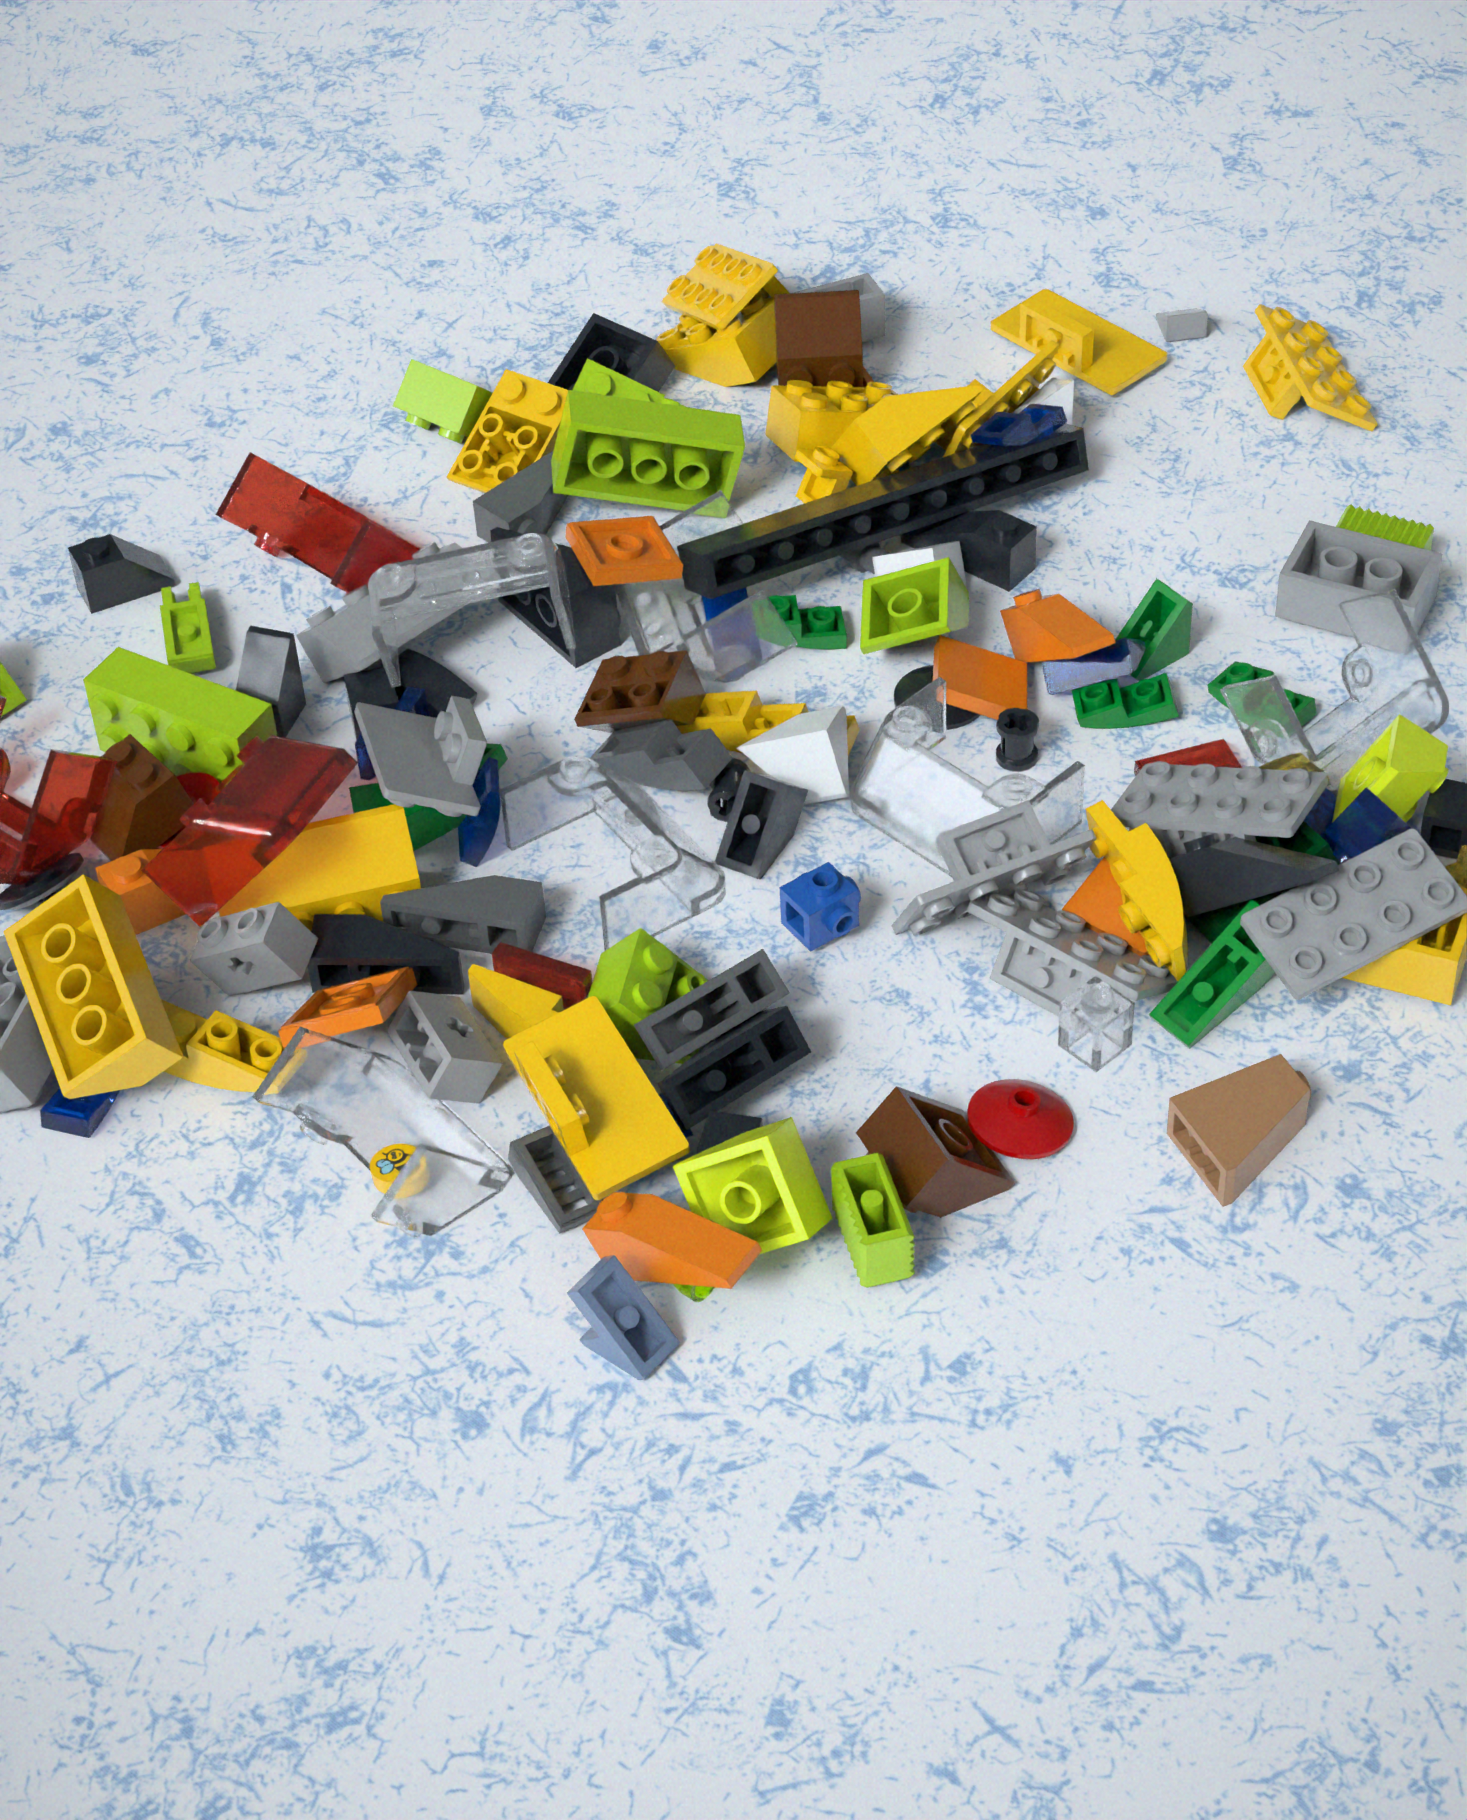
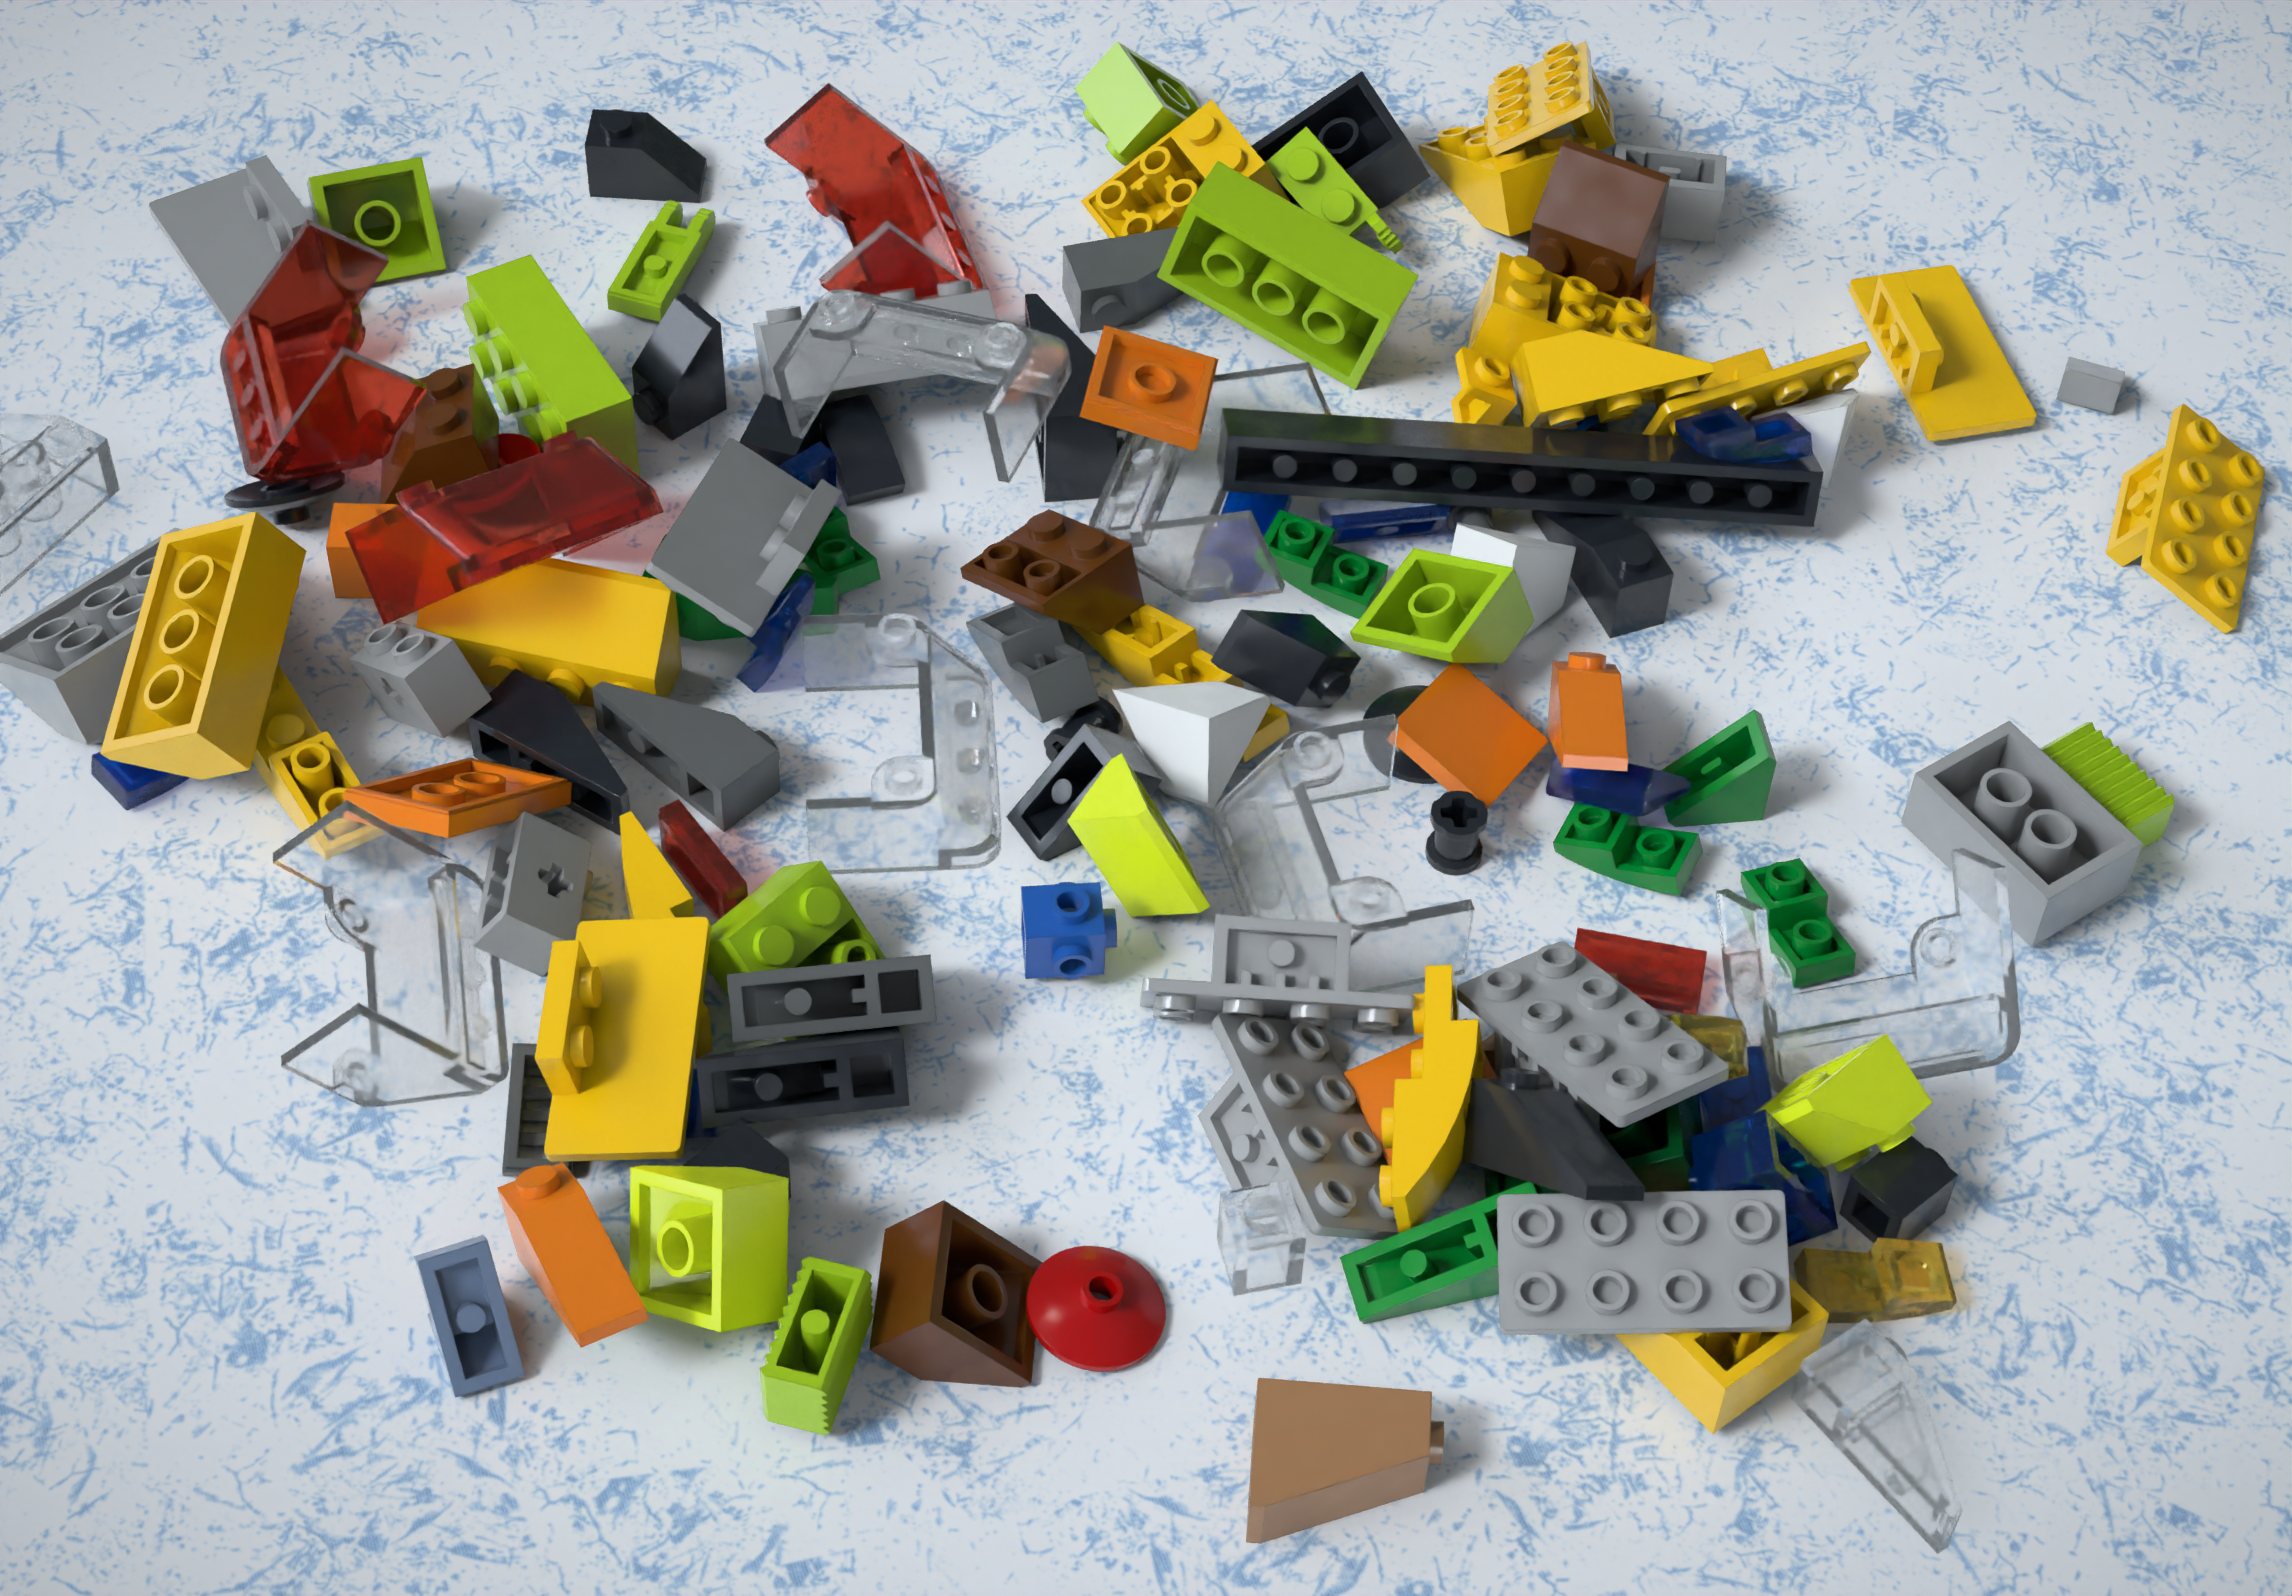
camera: 25 degrees right, 5 degrees up
(388, 1164) = (394, 1000): yellow tile -> none
(816, 578) = (1377, 520): none -> clear blue slope
(833, 681) = (1287, 657): none -> black slope
(836, 827) = (1135, 846): none -> neon yellow slope

